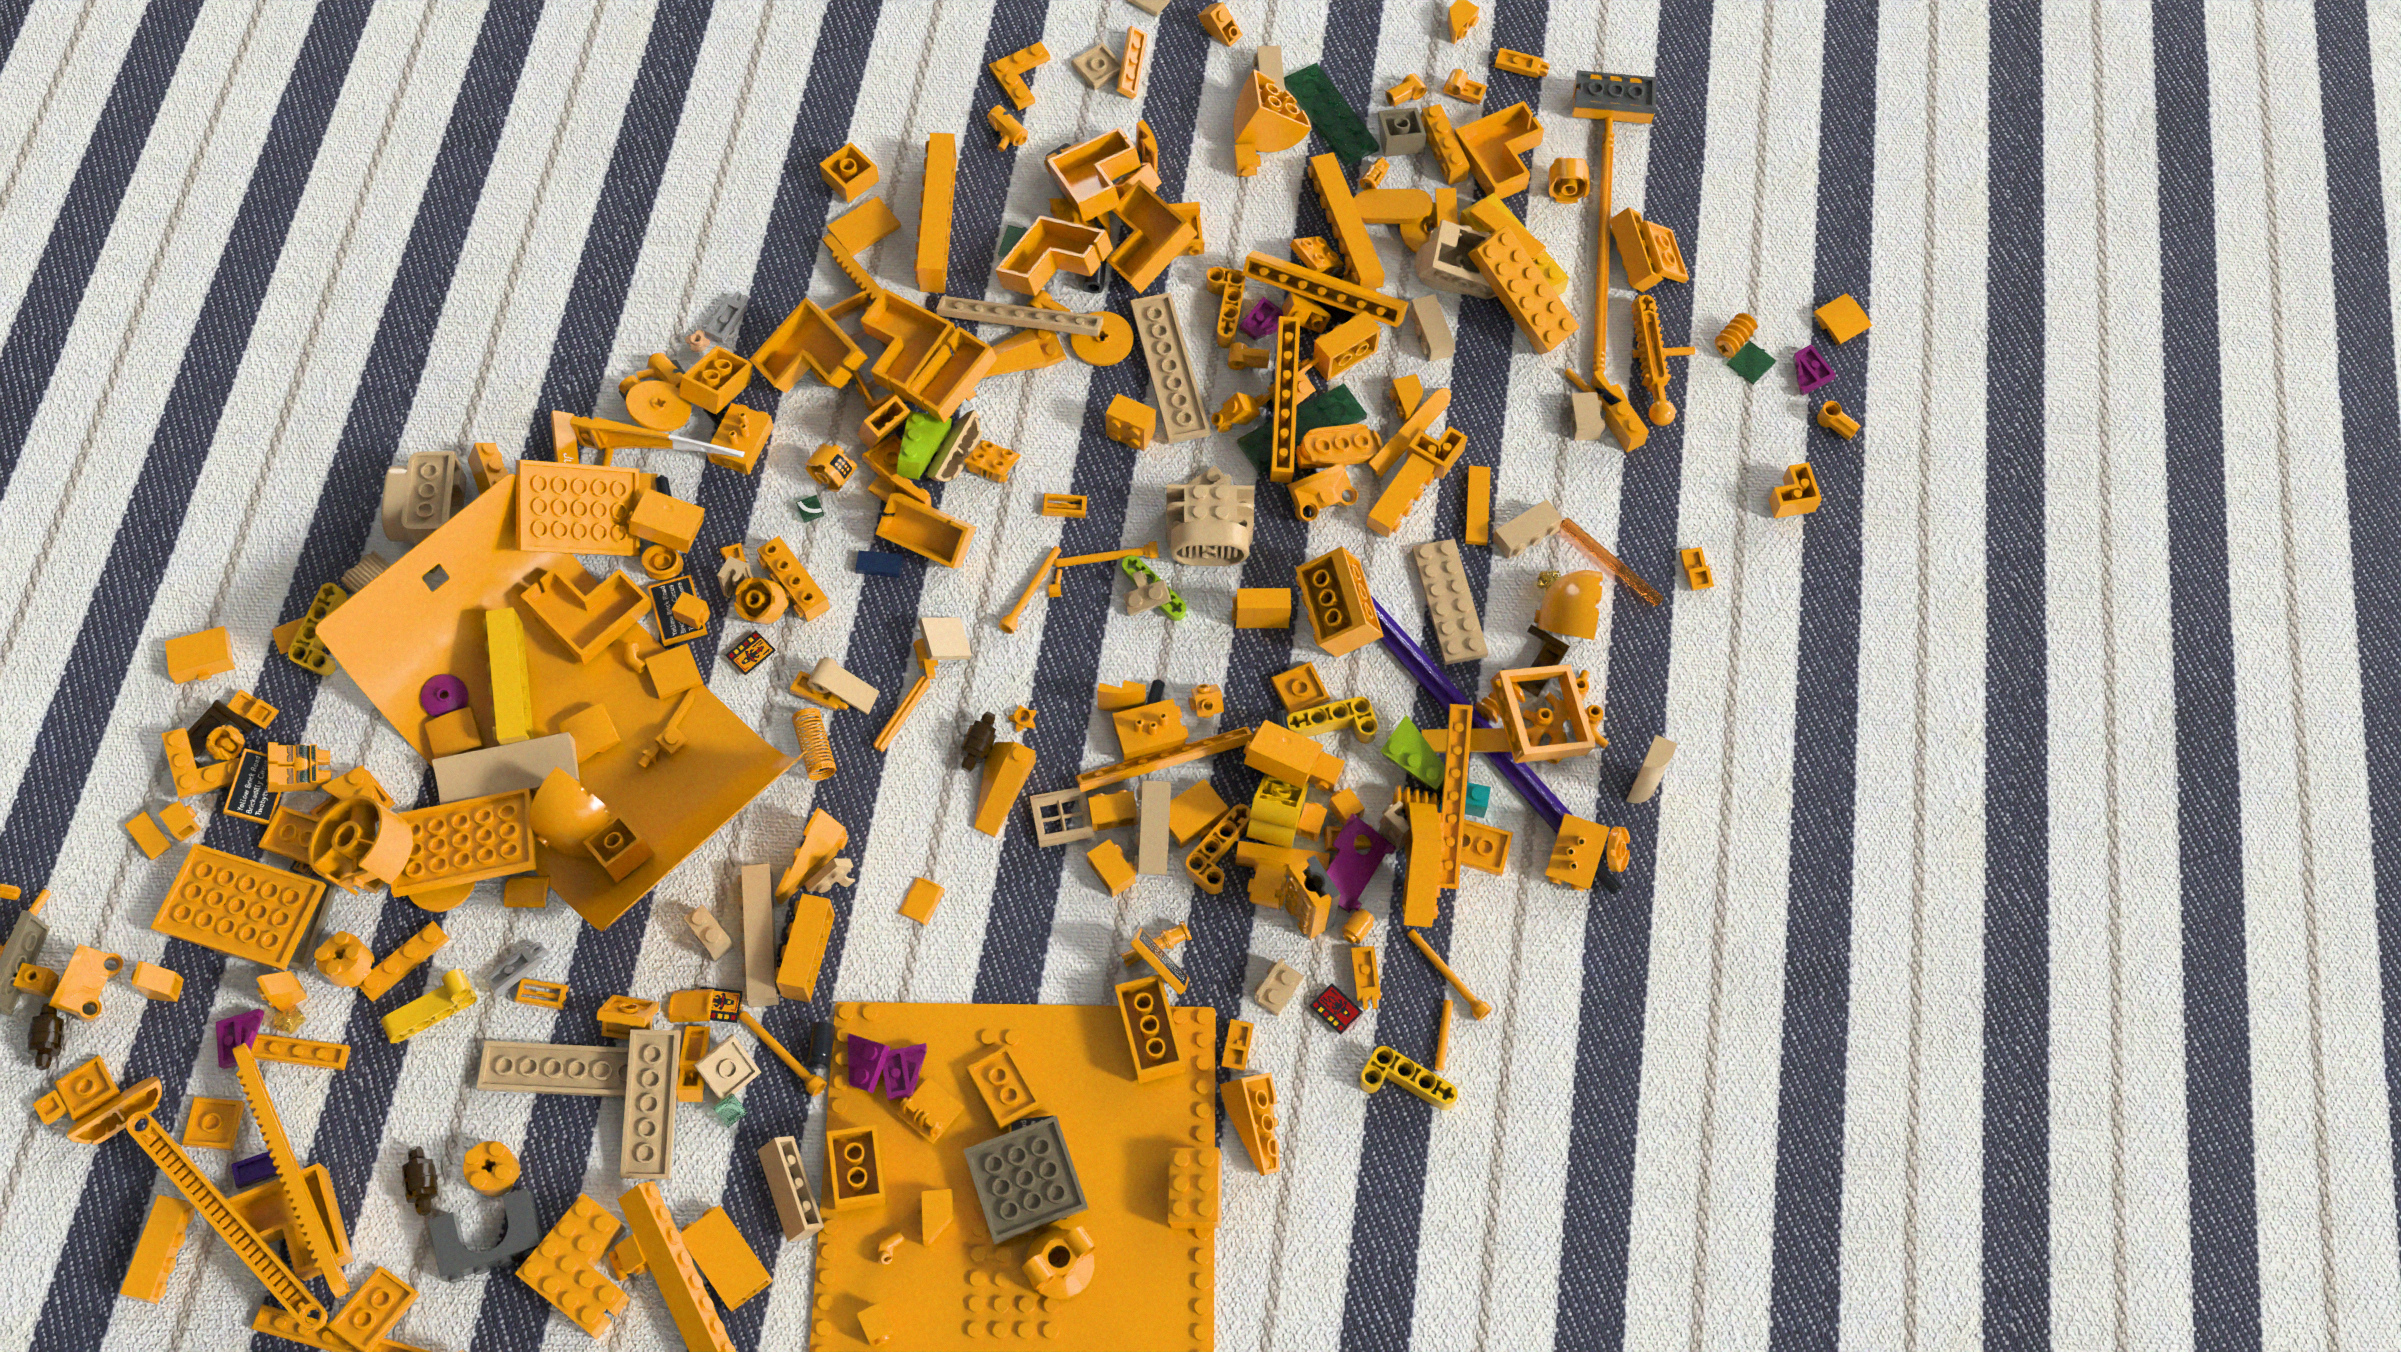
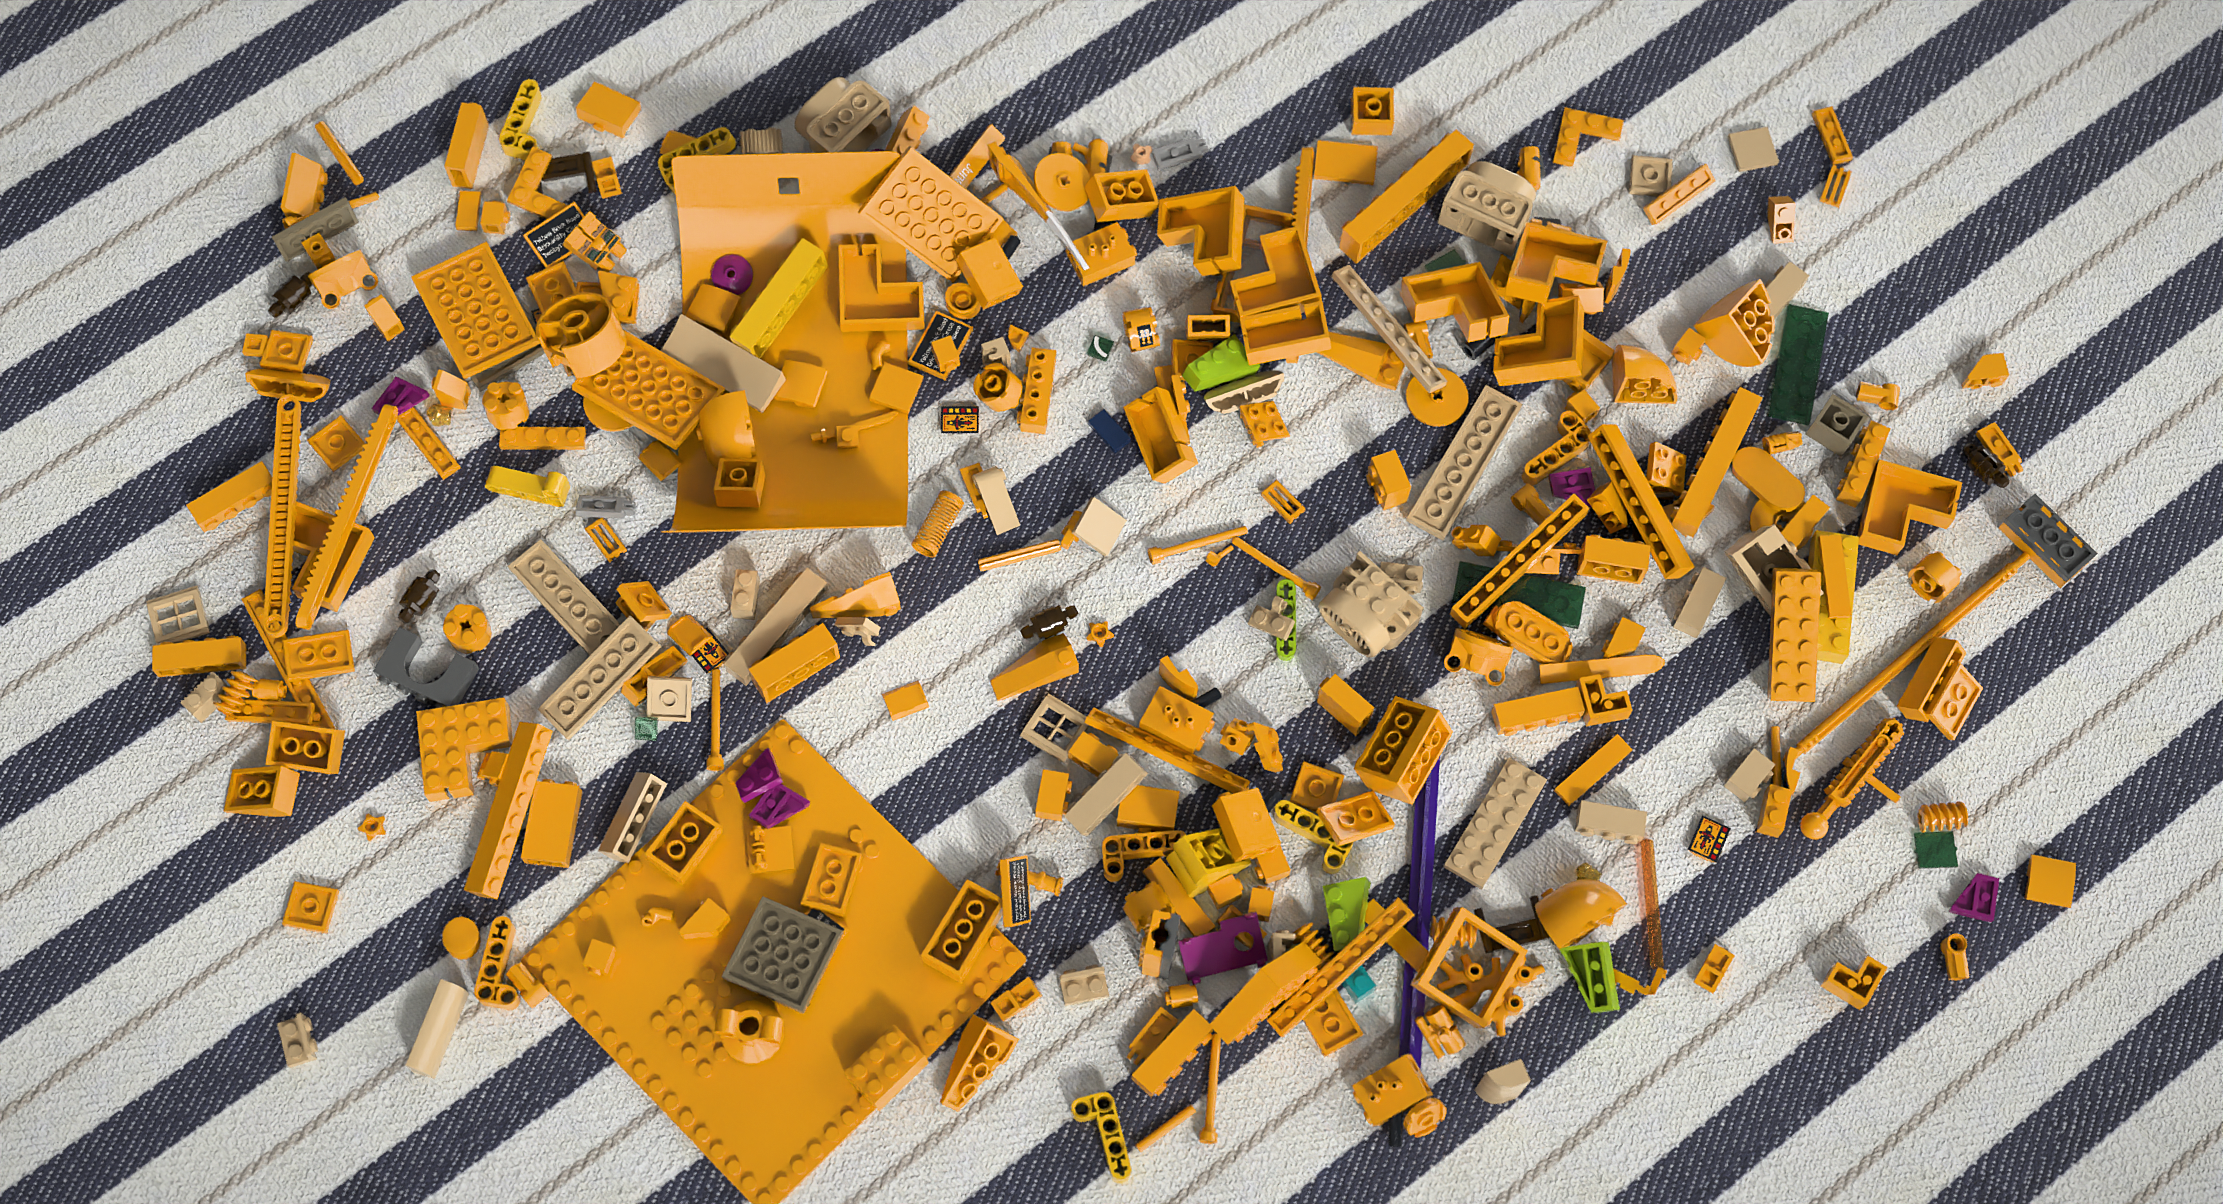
camera: 45 degrees right, 5 degrees up
(96, 781) = (466, 145): none -> light orange brick
(143, 740) = (530, 98): none -> yellow beam
(225, 743) = (567, 187): light orange piece -> none
(253, 1170) = (329, 495): dark purple tile -> none
(820, 1045) = (743, 739): black piece -> none
(1009, 170) = (1489, 206): none -> tan brick
(1213, 257) = (1582, 405): none -> light orange brick
(1234, 205) = (1641, 377): none -> light orange brick
(1234, 688) = (1267, 746): none -> light orange wing
(1336, 1008) = (1108, 1039): piece -> none
(1352, 683) = (1355, 818): none -> light orange tile
(1395, 974) = (1172, 1053): none -> light orange brick
(1463, 88) = (1928, 429): light orange plate -> none
(1524, 80) = (1986, 465): none -> dark brown piece
(1566, 778) = (1440, 1031): none -> light orange pin
(1603, 484) = (1709, 839): none -> piece
(1626, 642) = (1594, 974): none -> lime wedge
(1652, 629) = (1631, 984): none -> light orange piece

